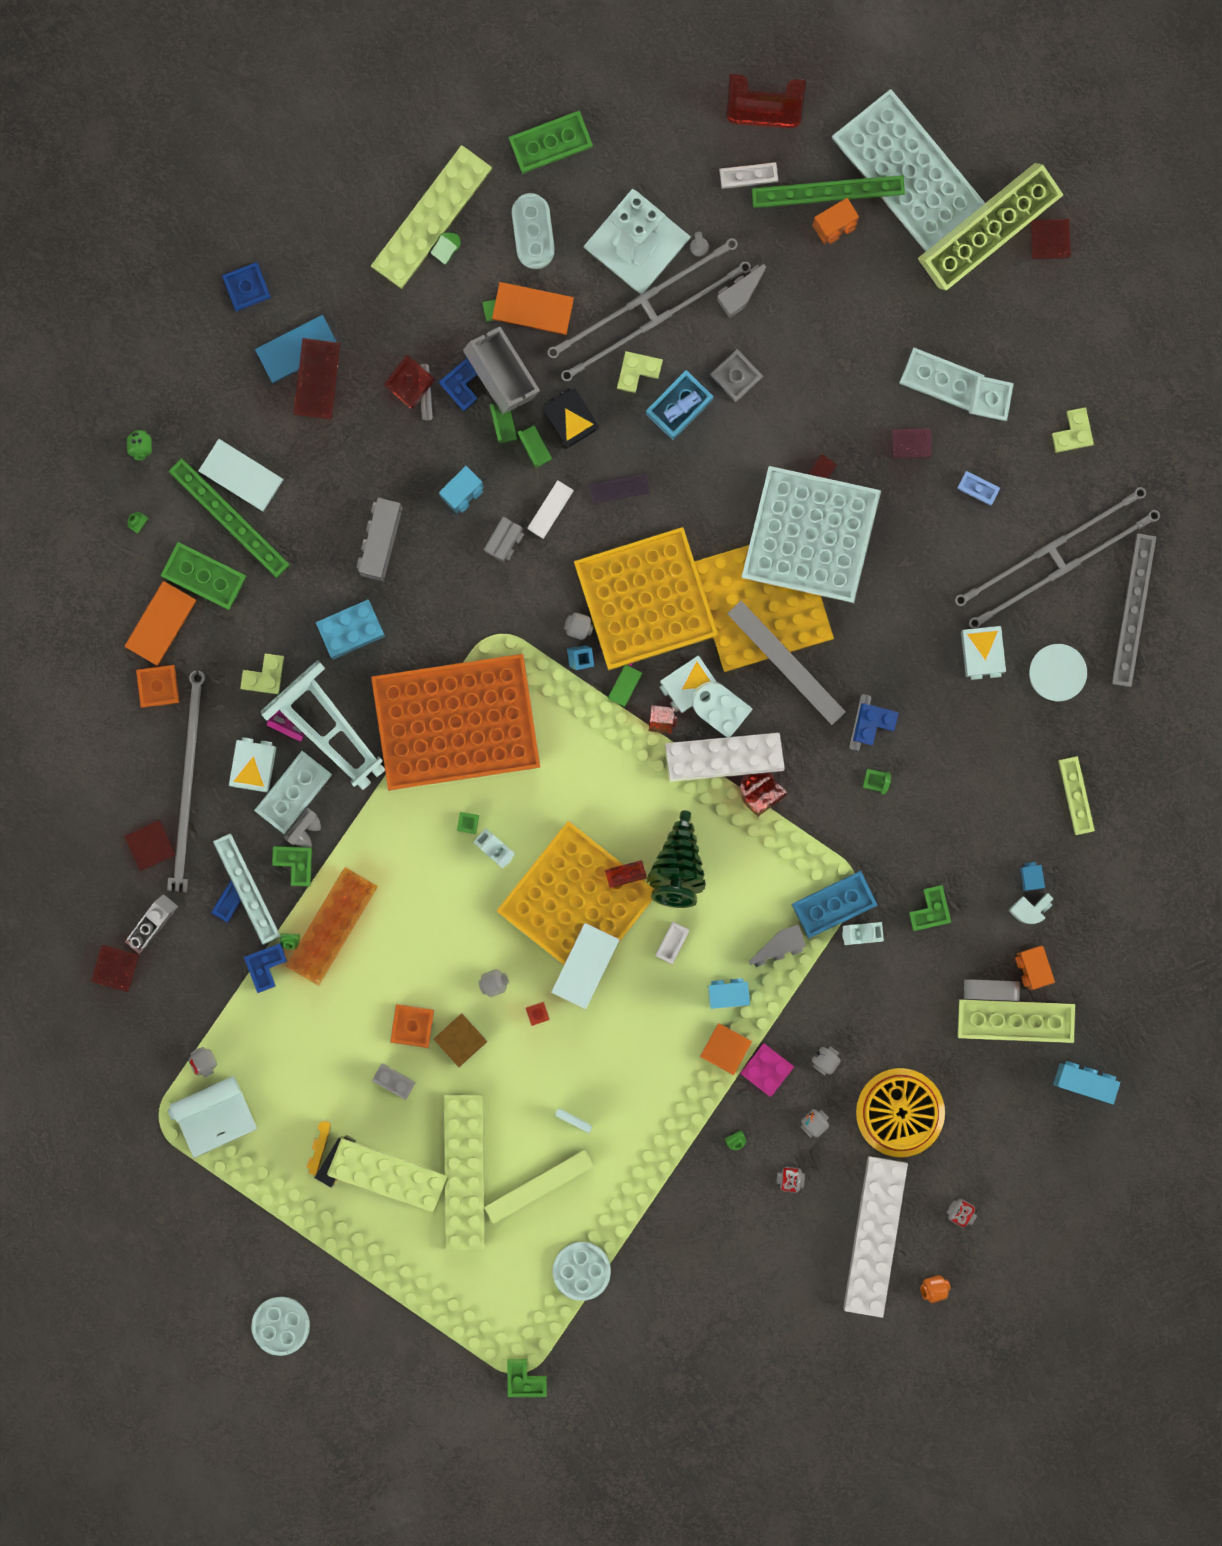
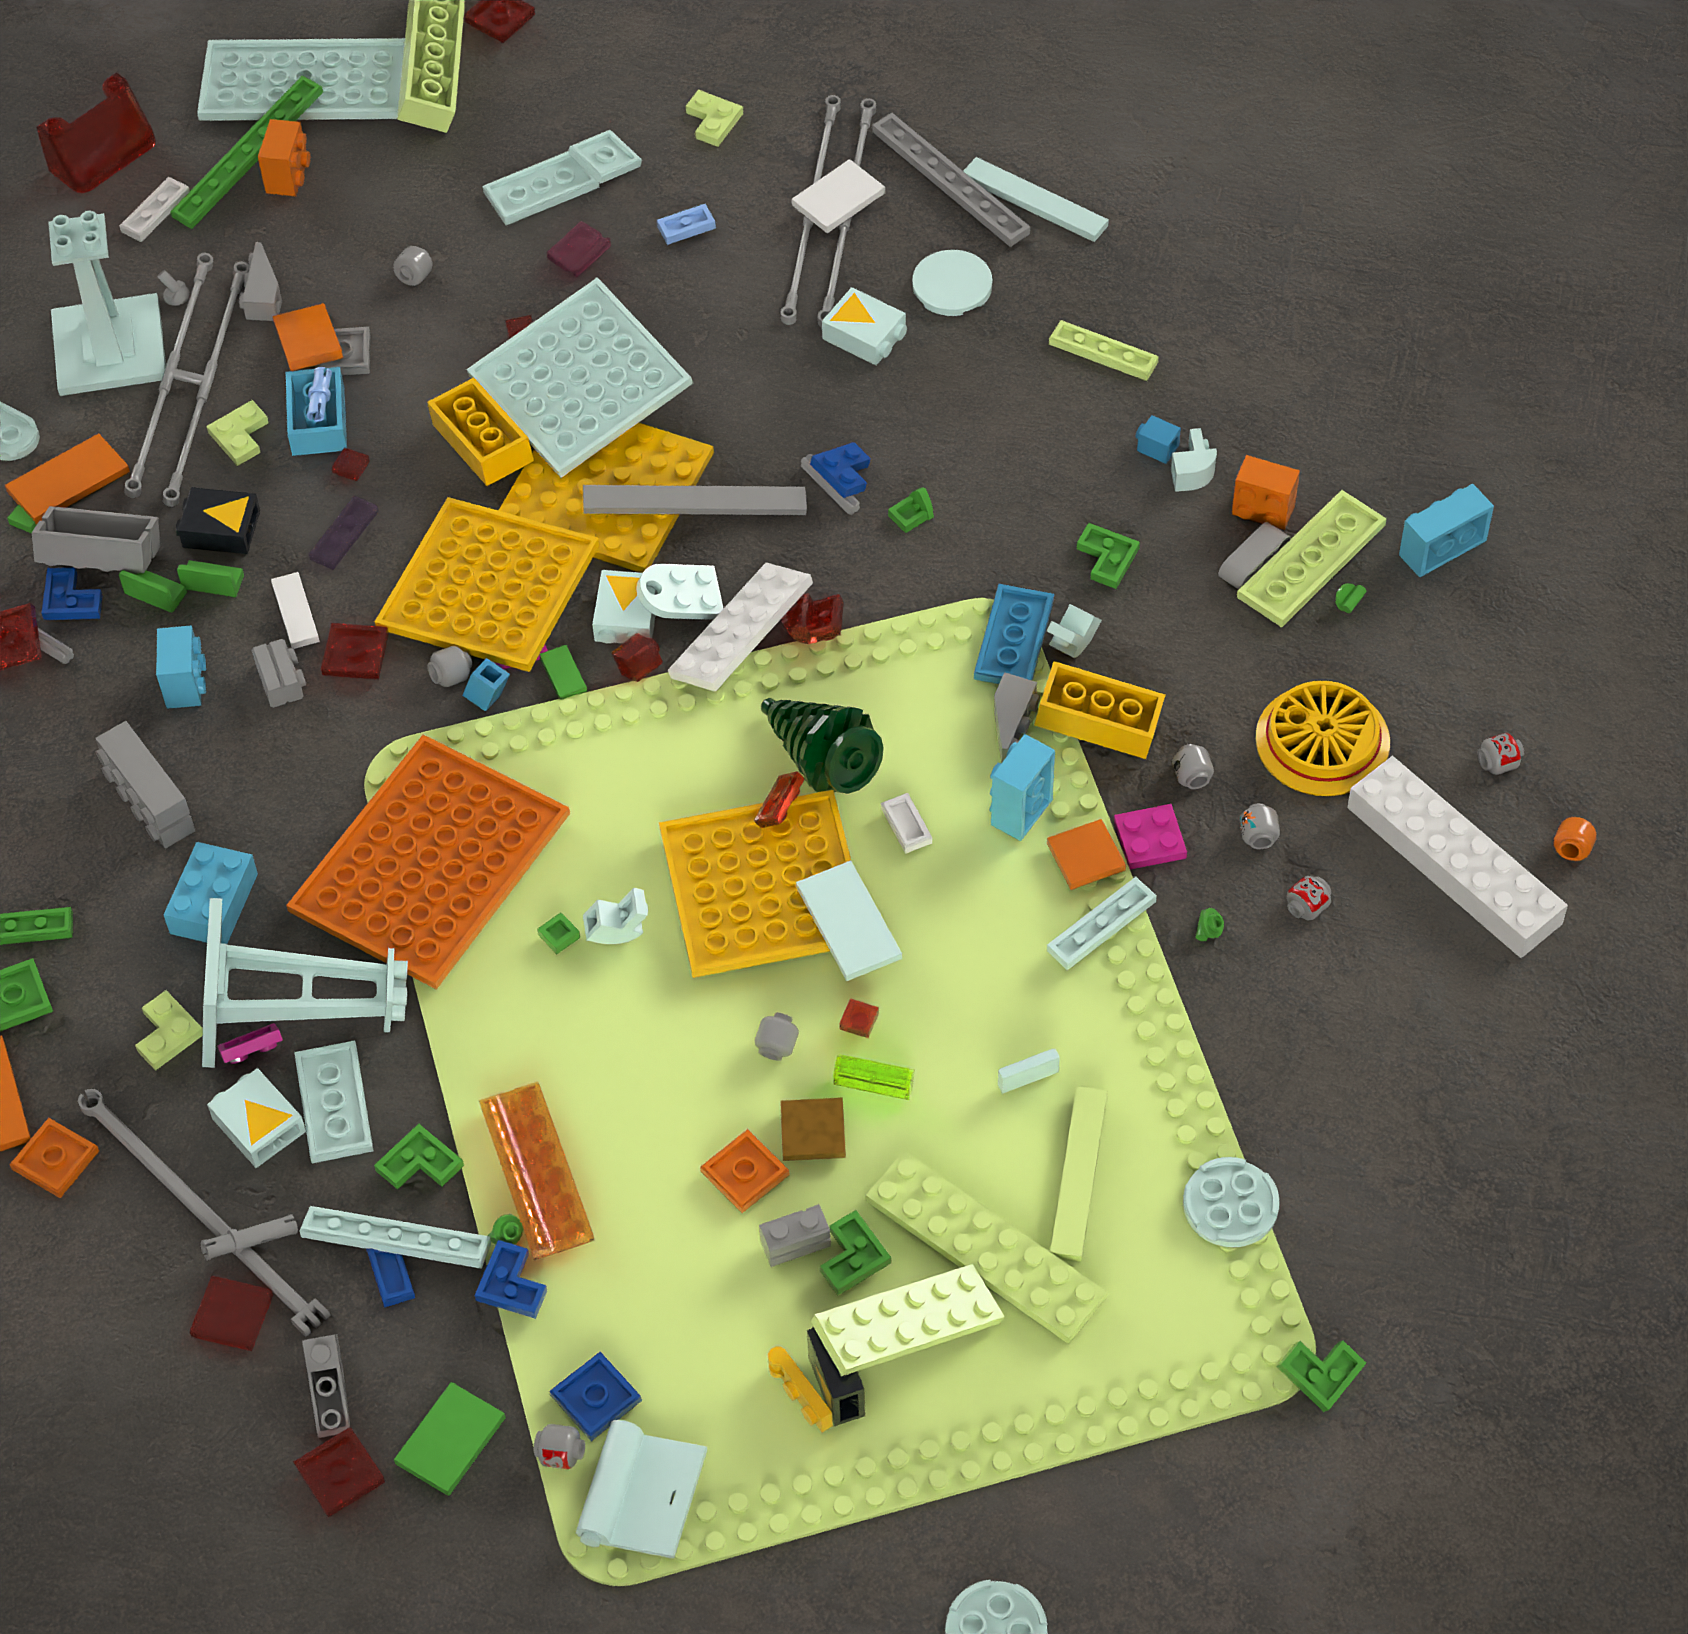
camera: 50 degrees left, 30 degrees down
(172, 1003) = (449, 1438): none -> bright green tile
(181, 818) = (236, 1240): none -> light grey pin
(243, 1054) = (595, 1396): none -> blue tile
(296, 834) = (380, 1109): light grey tile -> none
(409, 1121) = (861, 1255): none -> bright green plate
(512, 1046) = (873, 1076): none -> clear neon green piece
(549, 566) = (355, 651): none -> clear red plate
(665, 451) = (350, 464): none -> clear red tile
(689, 1090) = (1101, 923): none -> light aqua plate
(723, 354) = (307, 337): none -> orange tile
(735, 509) = (480, 431): none -> yellow brick
(817, 990) = (1099, 710): none -> yellow brick
(823, 362) = (412, 265): none -> light grey head
(1003, 1061) = (1349, 596): none -> bright green plate
(1066, 559) = (838, 196): none -> white tile
(1159, 669) = (1037, 200): none -> light aqua tile

